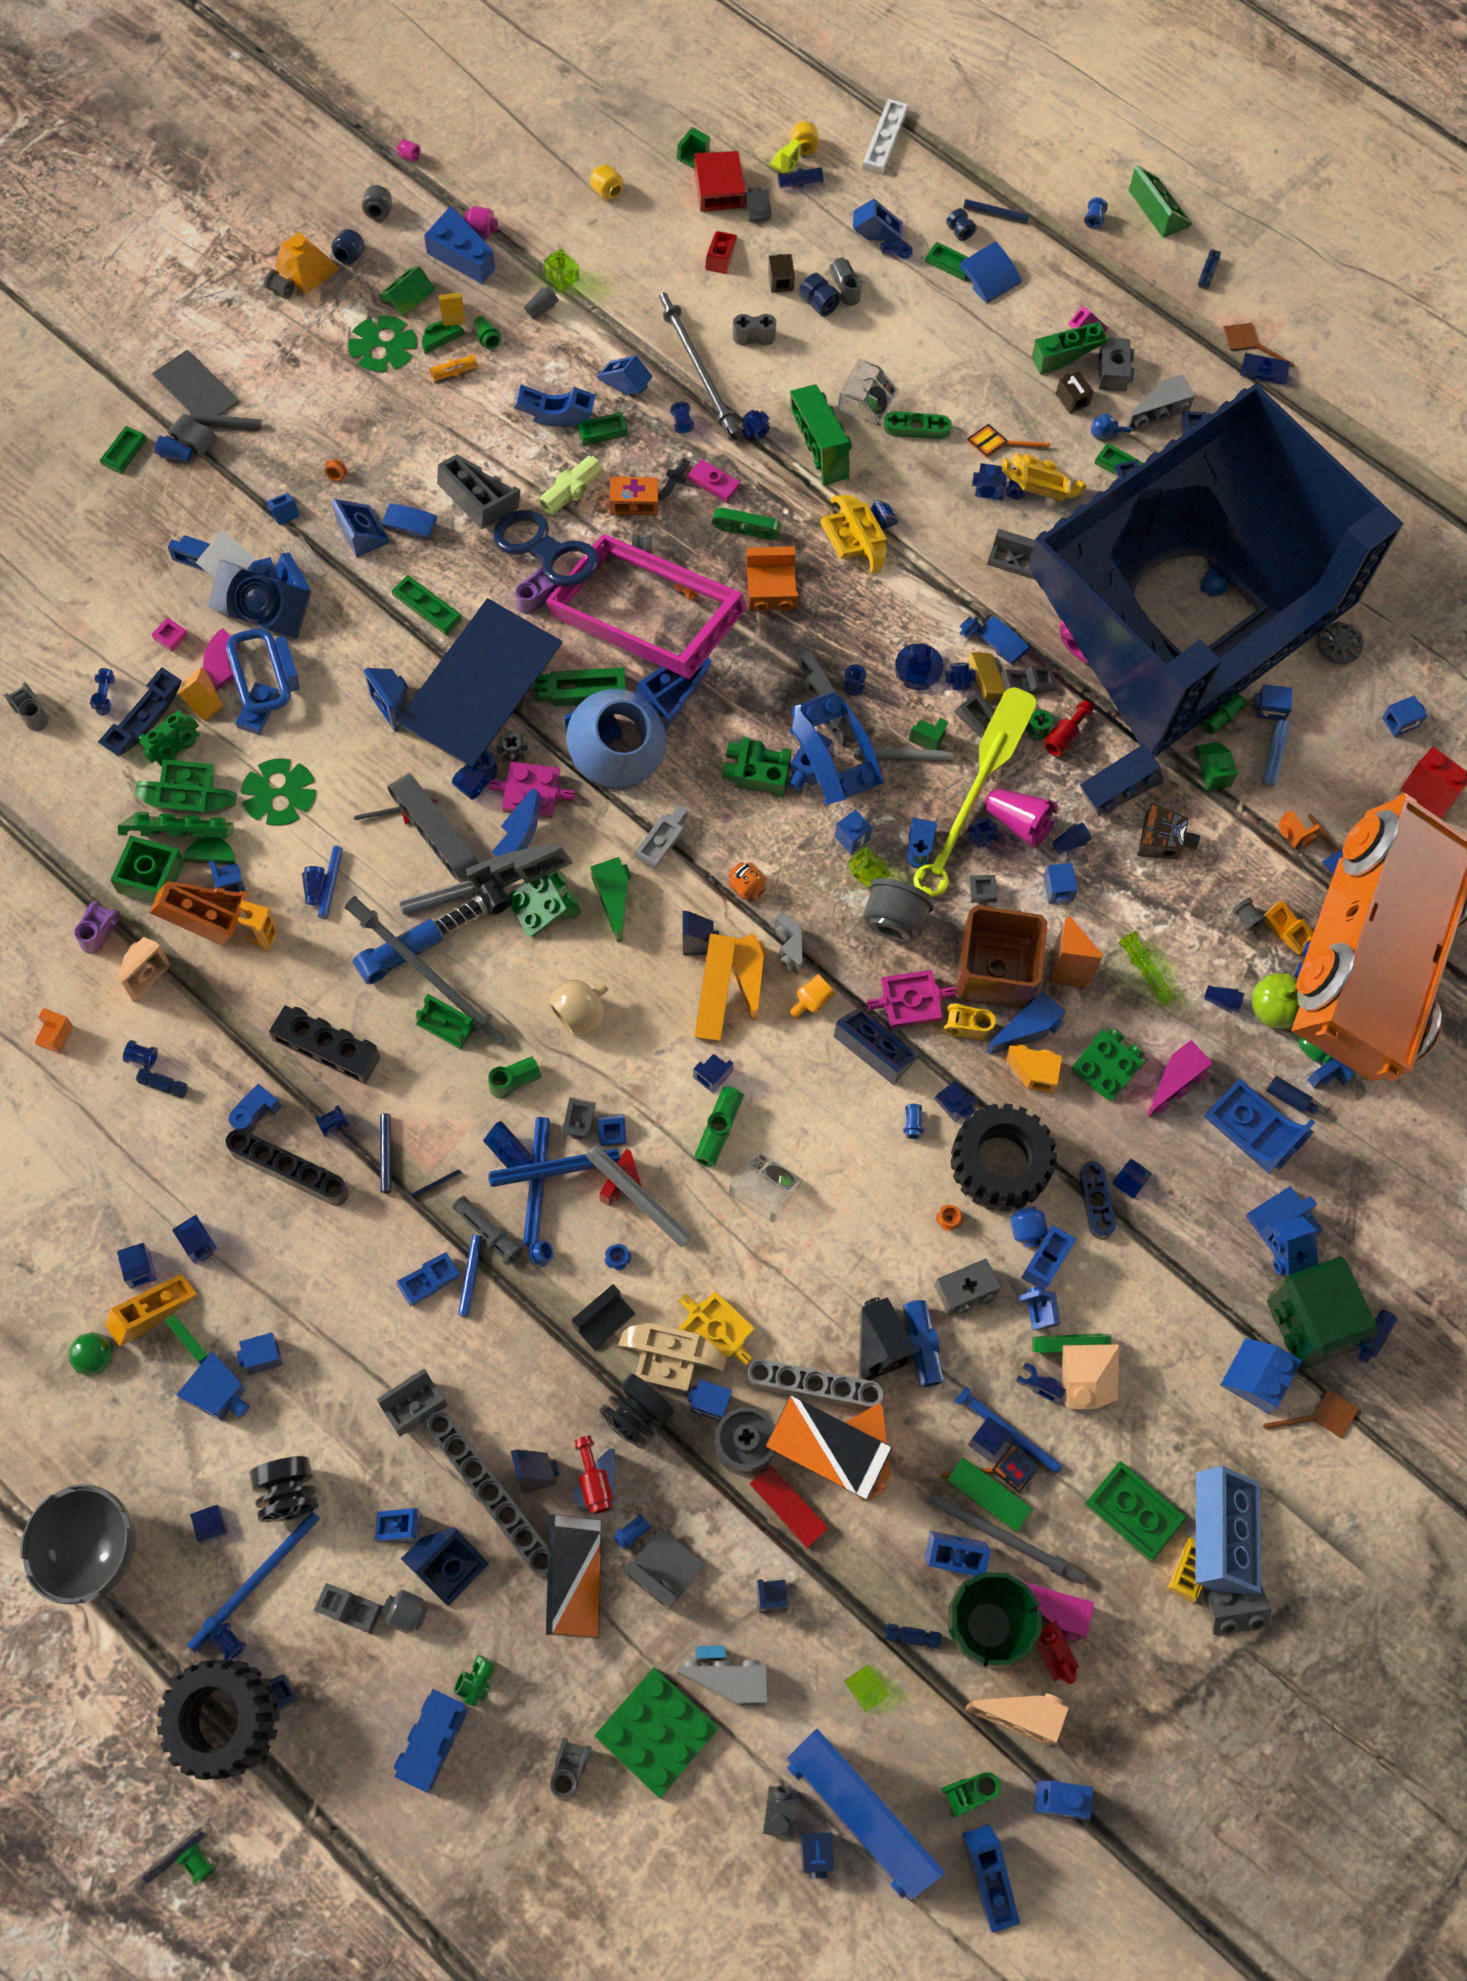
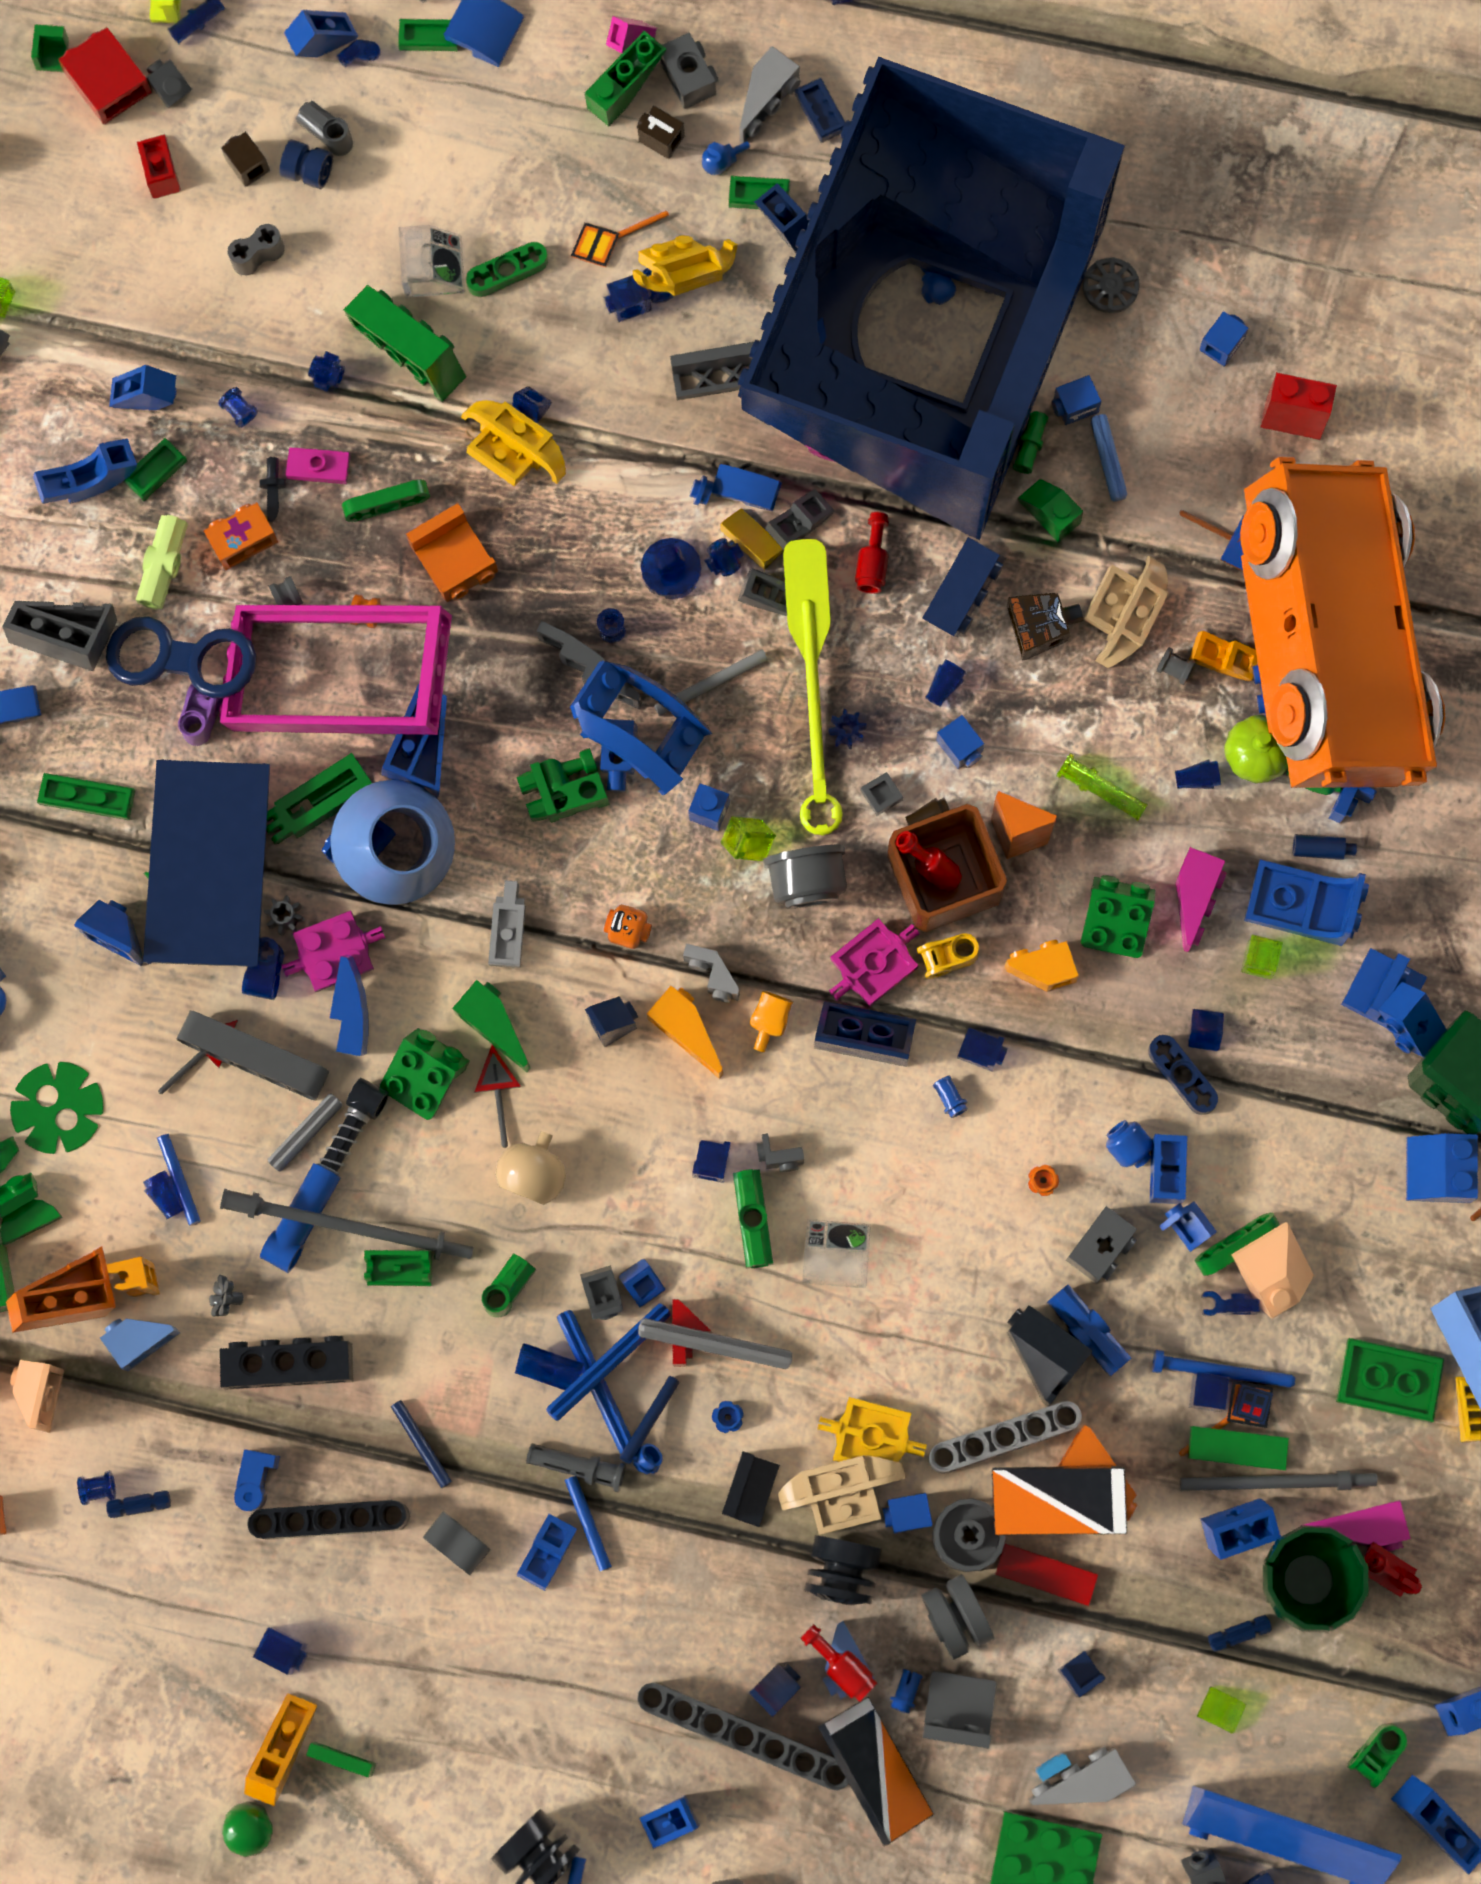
camera: 20 degrees left, 10 degrees up
(136, 1265) = (237, 1712): clear blue panel -> none
(214, 1390) = (400, 1793): blue torso -> none
(227, 877) = (65, 1240): blue panel -> none
(231, 970) = (135, 1340): none -> medium blue slope
(259, 1353) = (422, 1730): blue brick -> none
(312, 975) = (224, 1297): none -> dark grey plant
(331, 1121) = (344, 1443): clear blue bush -> none
(367, 1235) = (456, 1543): none -> dark grey axle
(411, 1402) = (609, 1690): dark grey bracket -> none
(439, 1181) = (491, 1447): dark blue piece -> none
(445, 1563) = (739, 1832): dark blue slope -> none
(523, 864) = (383, 1048): dark grey slope -> none
(559, 1226) = (649, 1420): none -> dark blue bar
(593, 933) = (497, 1077): none -> piece
(701, 1495) = (954, 1618): none -> dark grey wheel
(715, 987) = (663, 1068): light orange tile -> none
(725, 417) = (286, 379): dark grey bar -> none
(765, 1097) = (785, 1159): none -> dark grey bracket
(920, 840) = (786, 772): blue piece -> none
(928, 735) = (725, 644): green panel -> none
(992, 946) = (931, 862): none -> red piece
(1018, 1128) = (1078, 1046): black tyre -> none
(1023, 814) = (878, 685): dark pink cone -> none
(1029, 1716) = (1395, 1648): light nougat slope -> none
(1031, 1024) = (1015, 919): blue slope -> none
(1041, 725) = (847, 563): green bush -> none
(1203, 1146) = (1261, 957): none -> clear neon green brick
(1233, 858) = (1127, 609): none -> tan plate
(1295, 832) = (1172, 541): orange bracket -> none

